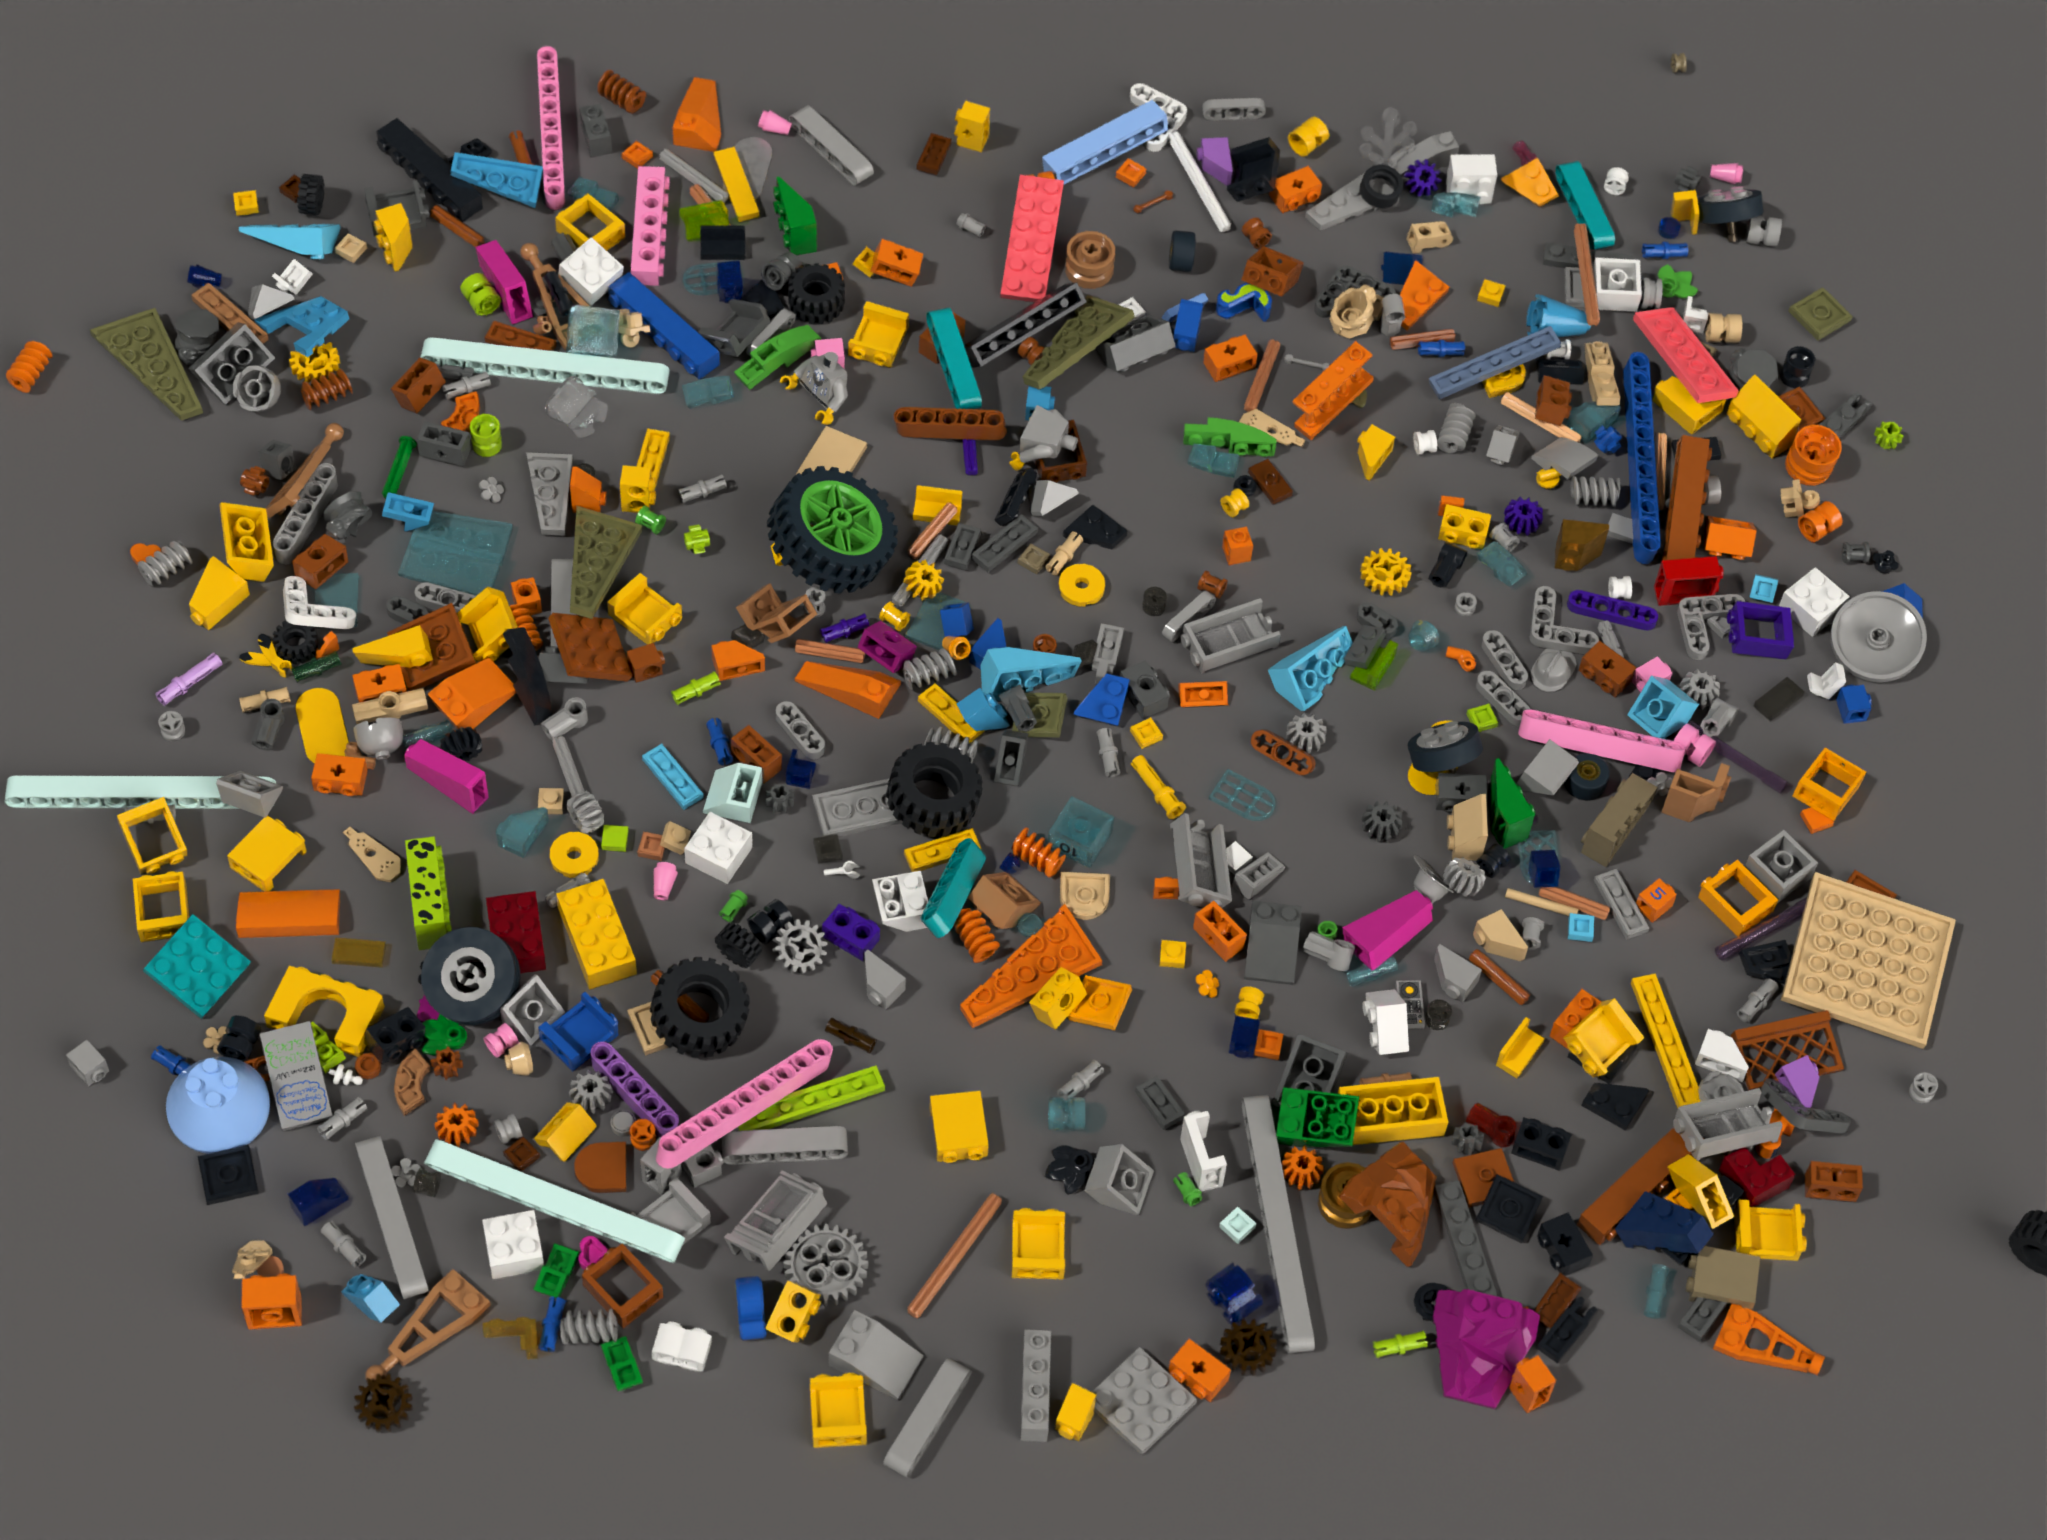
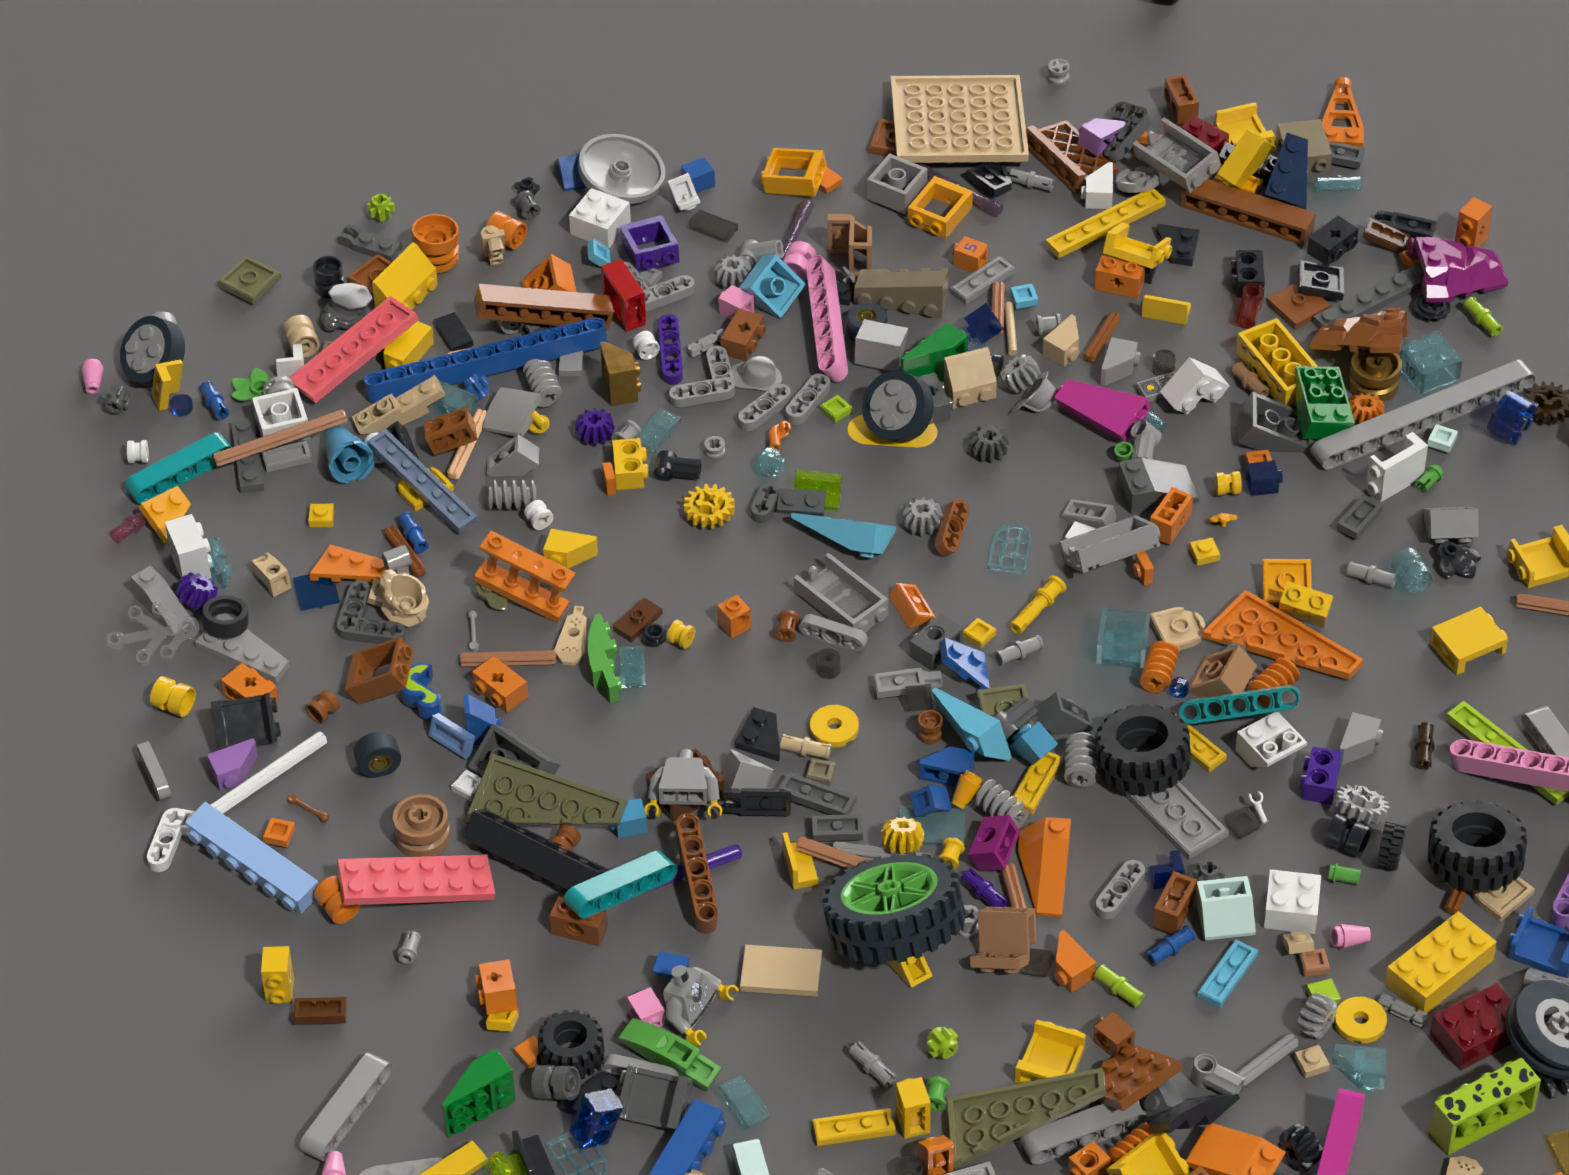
camera: 105 degrees left, 10 degrees down
(862, 383) = (667, 961): none -> blue panel
(879, 334) = (599, 980): yellow panel -> none
(1346, 1256) = (1430, 362): none -> clear light blue brick
(1467, 1138) = (1272, 312): dark grey gear -> none

